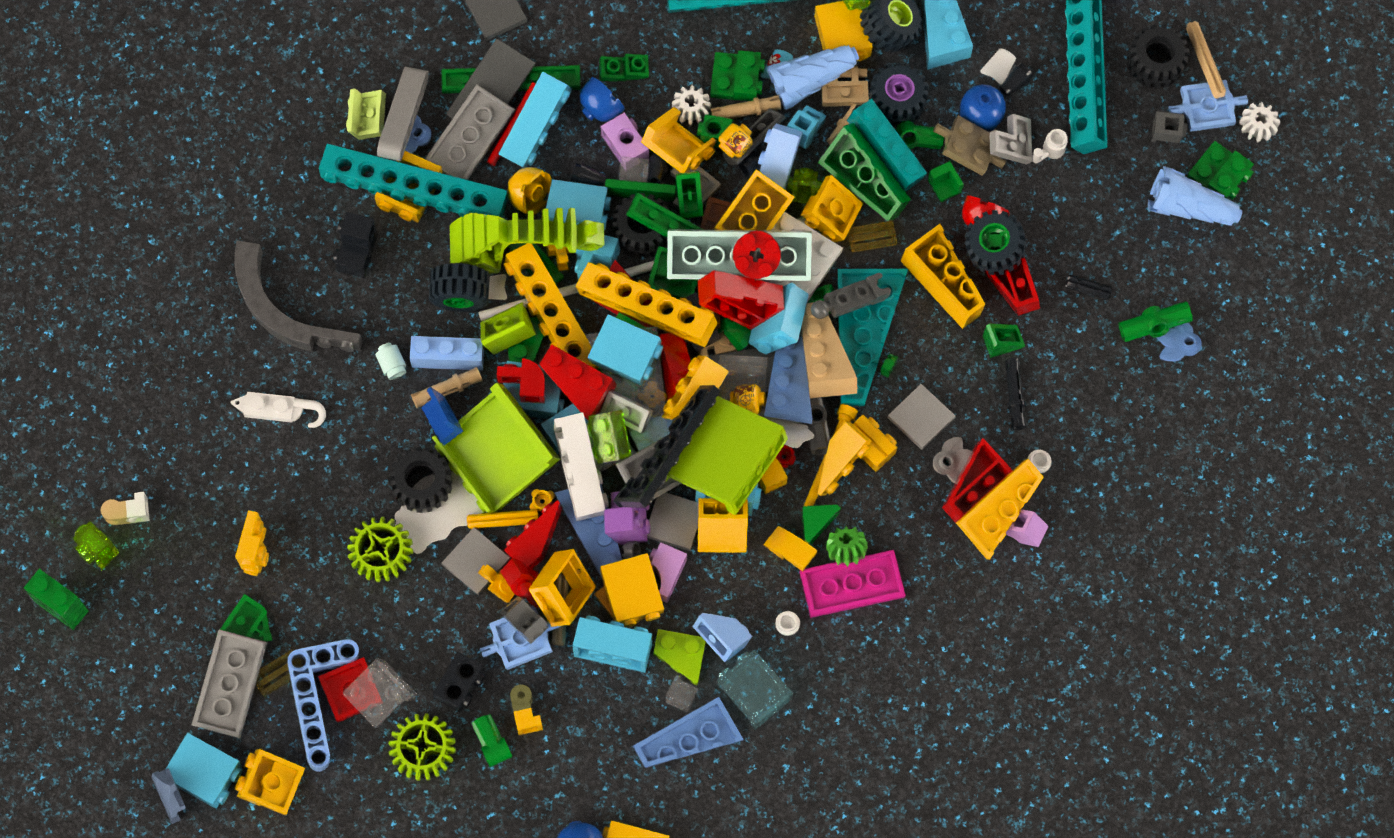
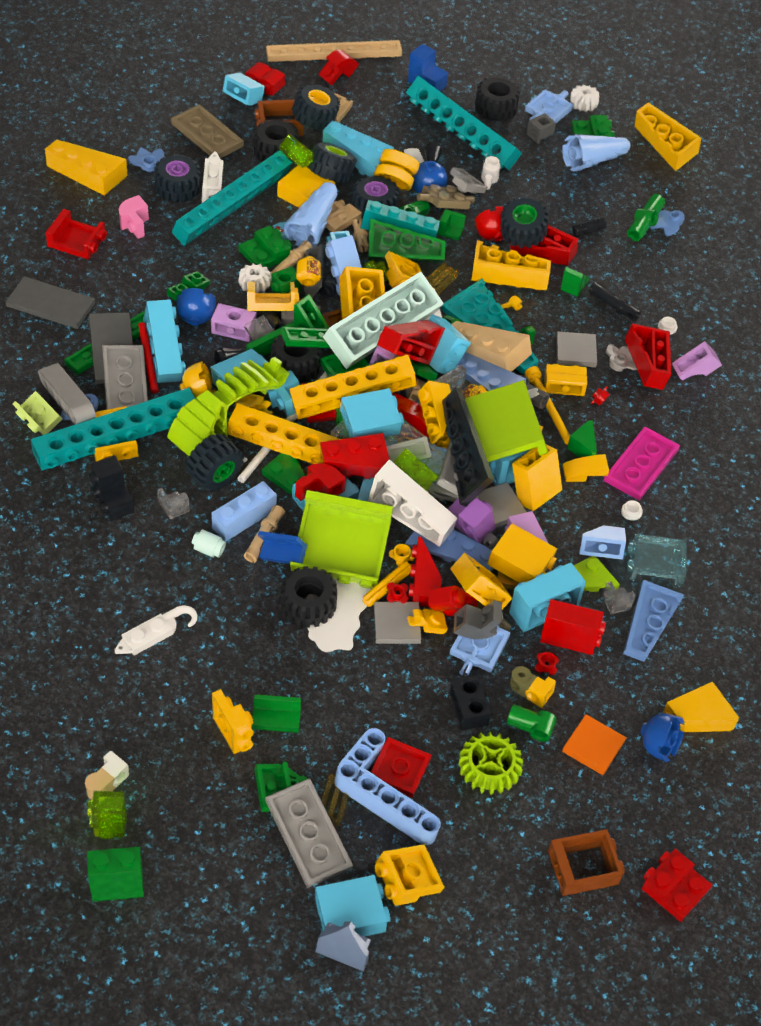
camera: 45 degrees left, 20 degrees down
(292, 332) = (94, 576): flat silver arch -> none
(299, 564) = (276, 713): none -> green panel
(378, 692) = (424, 749): clear bracket -> none
(387, 543) = (335, 669): lime gear -> none
(400, 295) = (174, 503): none -> clear panel
(492, 535) = (393, 597): none -> red plate
(506, 329) = (272, 465): lime slope -> none
(524, 802) = (594, 744): none -> orange tile
(558, 708) = (548, 658): none -> red plate
(604, 689) = (573, 627): none -> red brick
(762, 267) = (403, 295): red plate -> none
(842, 452) = (560, 387): yellow slope -> none
(846, 546) = (618, 440): bright green gear -> none
(851, 298) = (472, 305): dark grey plate -> none
(884, 486) = (600, 396): none -> red plate
(915, 318) = (513, 302): none -> yellow hand
(945, 78) = (398, 168): none -> yellow wheel
(995, 512) = (682, 353): yellow wing -> none
(1206, 59) = (531, 87): tan axle -> none
(1291, 244) = (667, 136): none -> yellow wedge

